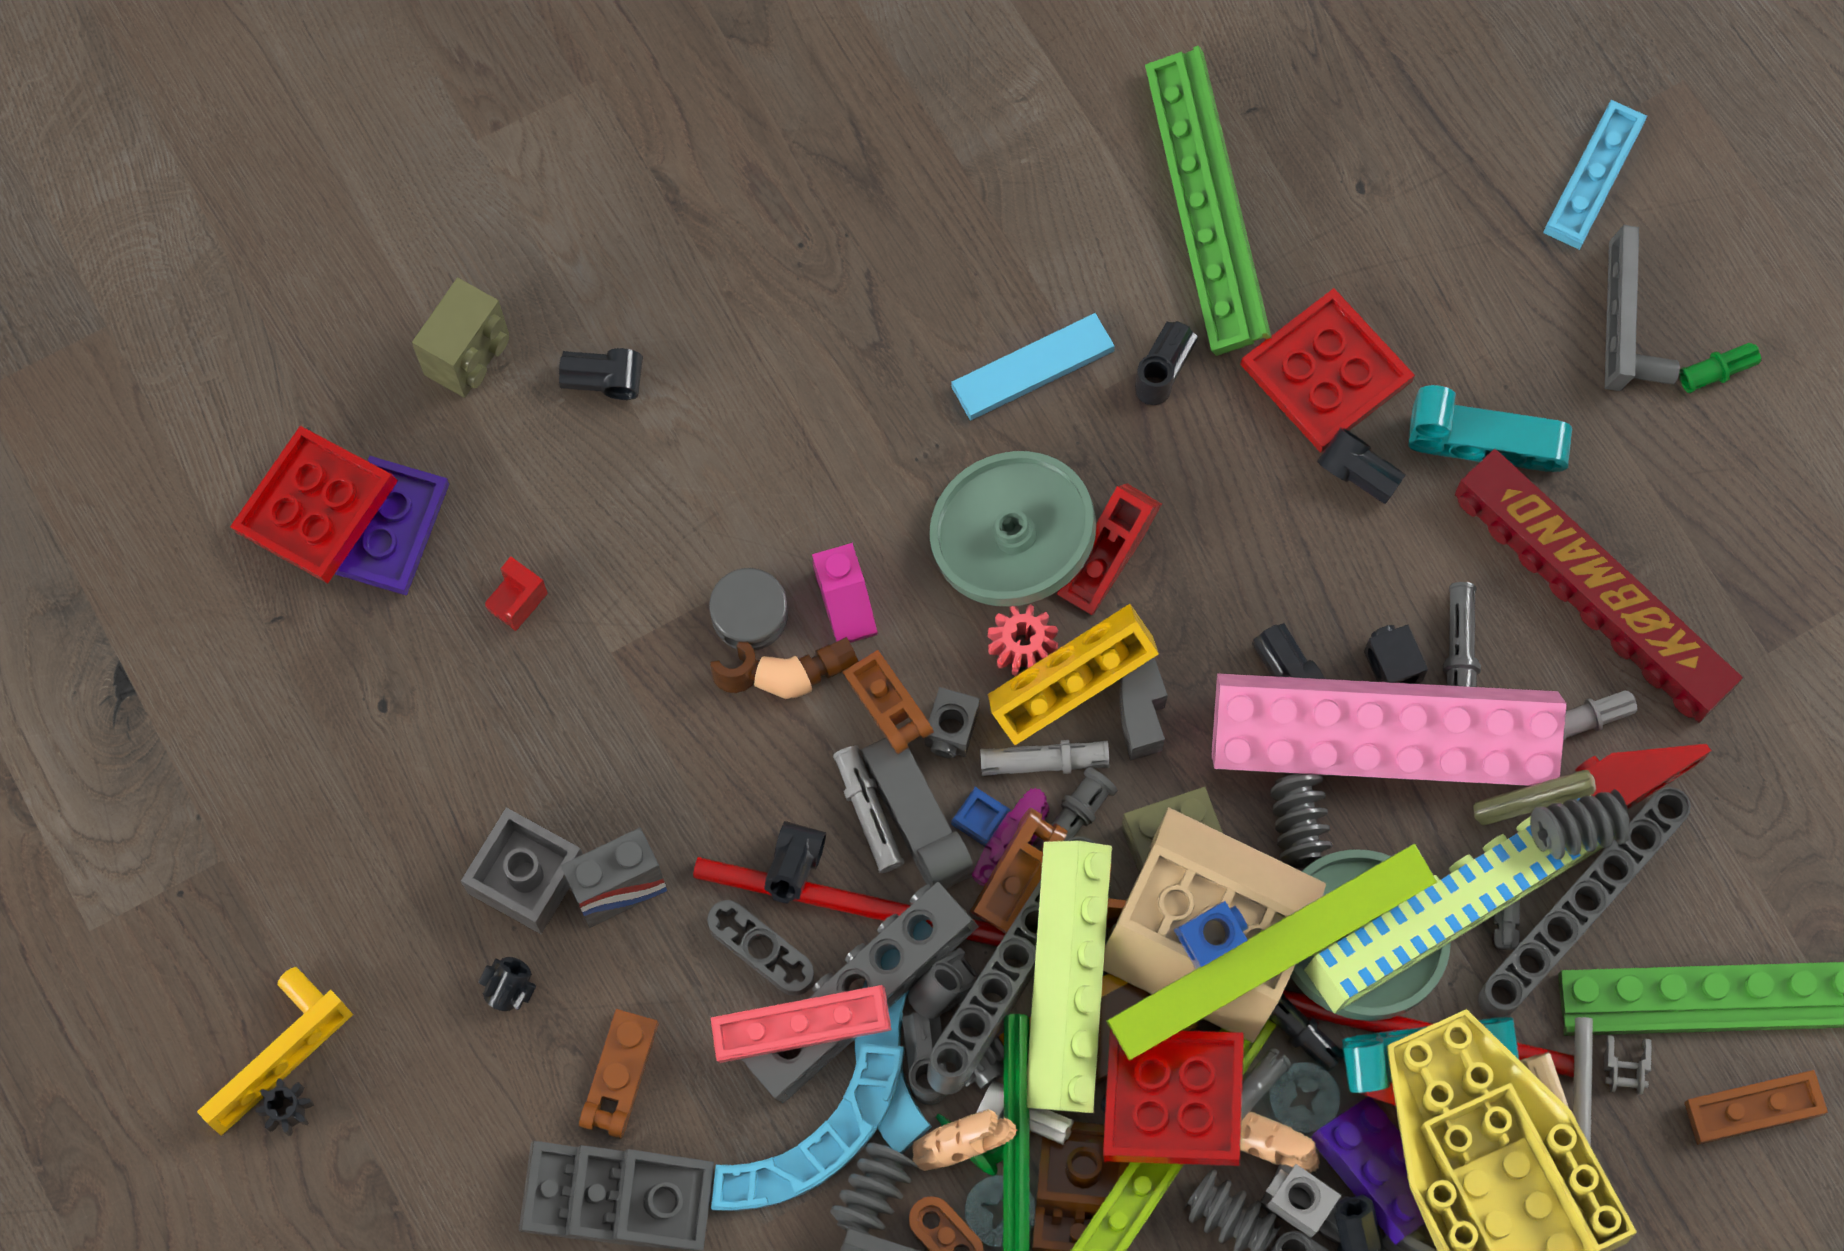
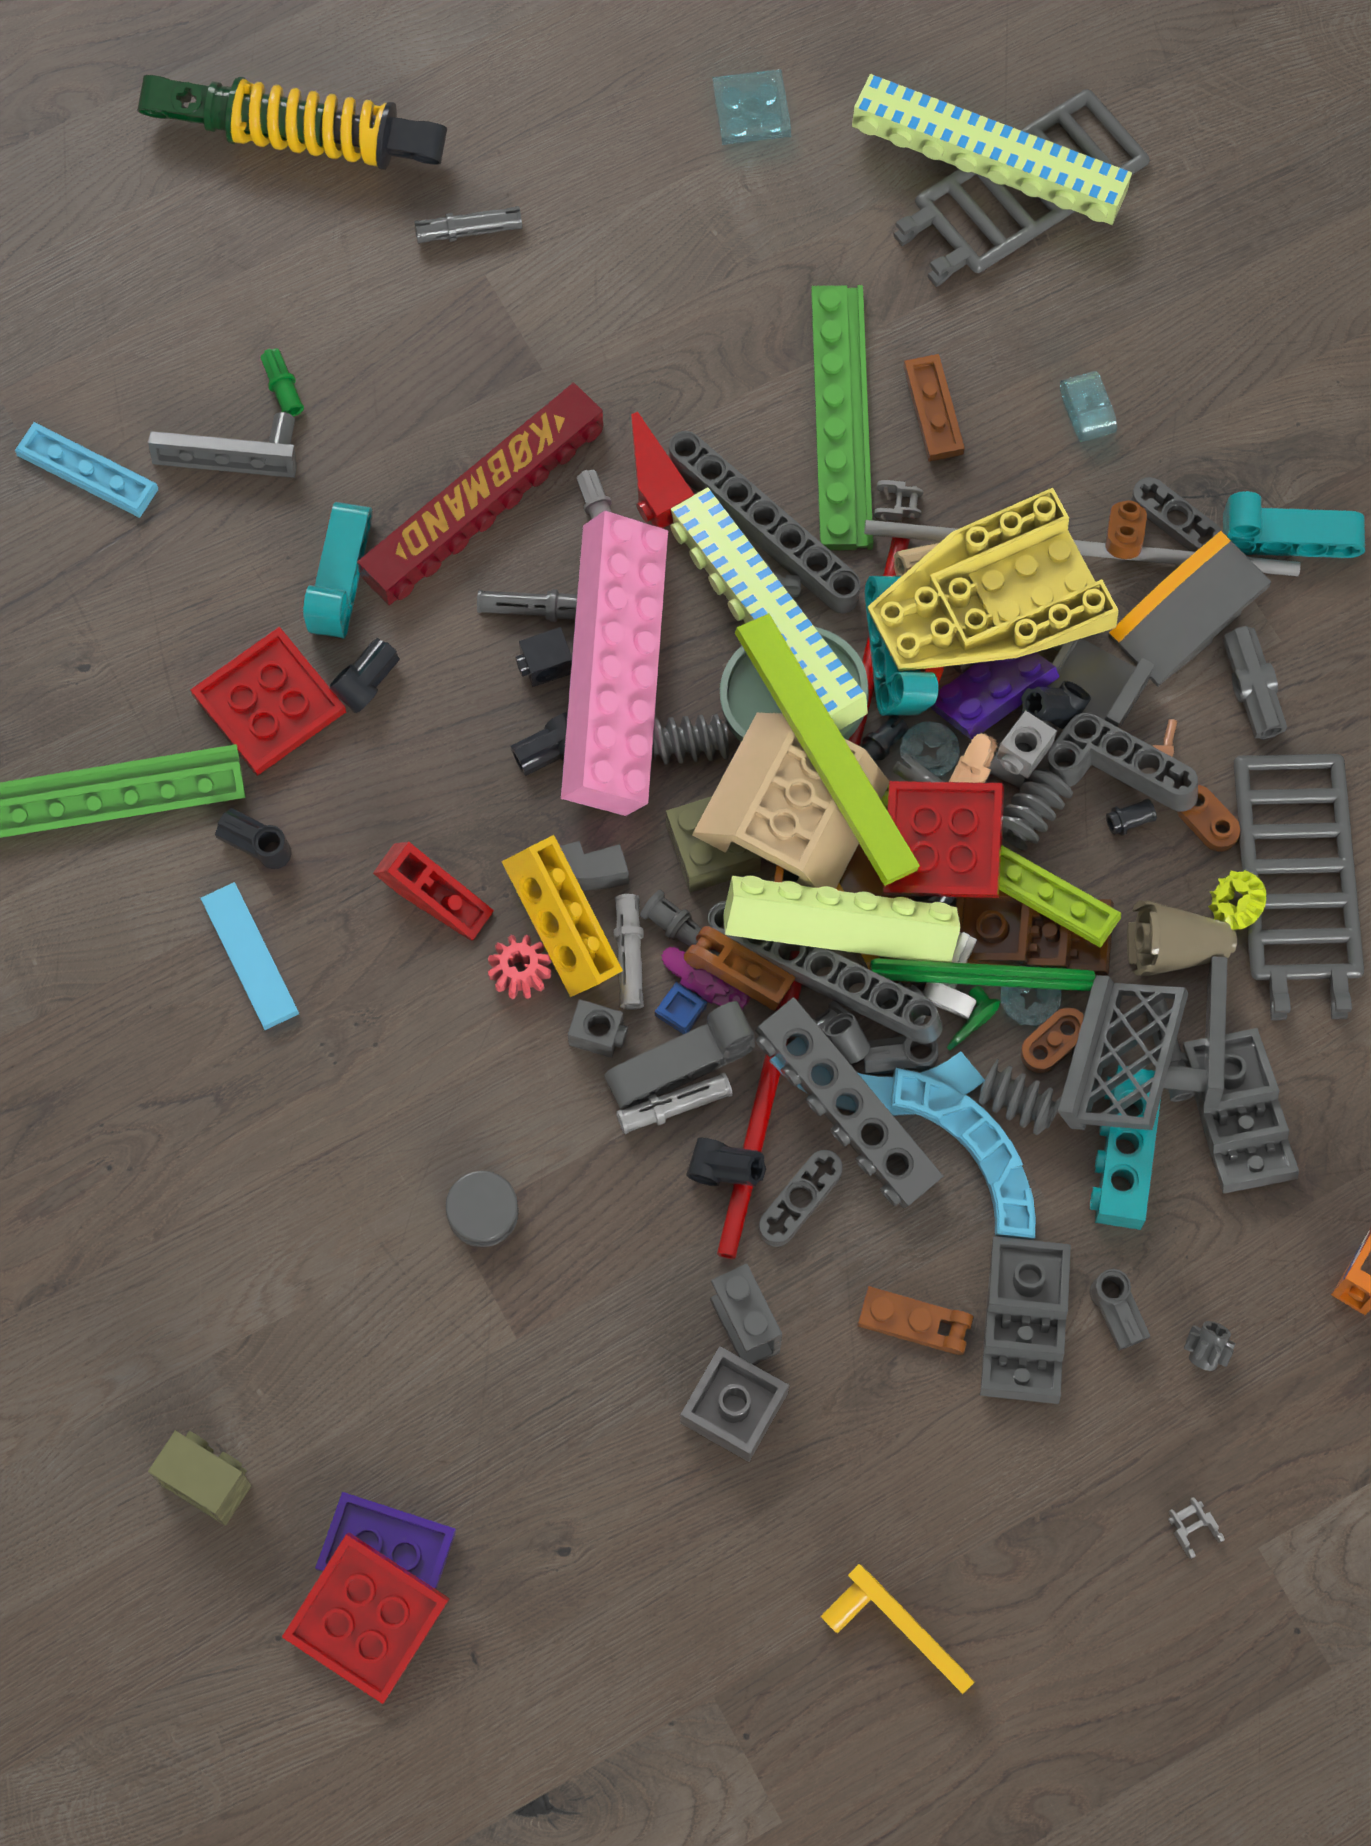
camera: 90 degrees left, 0 degrees up
(294, 1113) = (959, 1610): black gear -> none
(507, 984) = (838, 1418): black gear -> none
(516, 595) = (460, 1425): red panel -> none
(612, 373) = (238, 1337): black piece -> none
(782, 676) = (549, 1176): reddish brown piece -> none
(800, 1024) = (881, 1149): coral tile -> none
(844, 593) = (471, 1122): dark pink slope -> none
(887, 701) = (578, 1081): dark orange plate -> none
(962, 1140) = (977, 1020): light nougat hinge -> none
(1013, 528) = (415, 970): sand green dish -> none
(1193, 939) = (815, 806): blue brick -> none
(1527, 798) = (677, 549): olive axle -> none
(1580, 823) = (708, 508): dark grey piece -> none

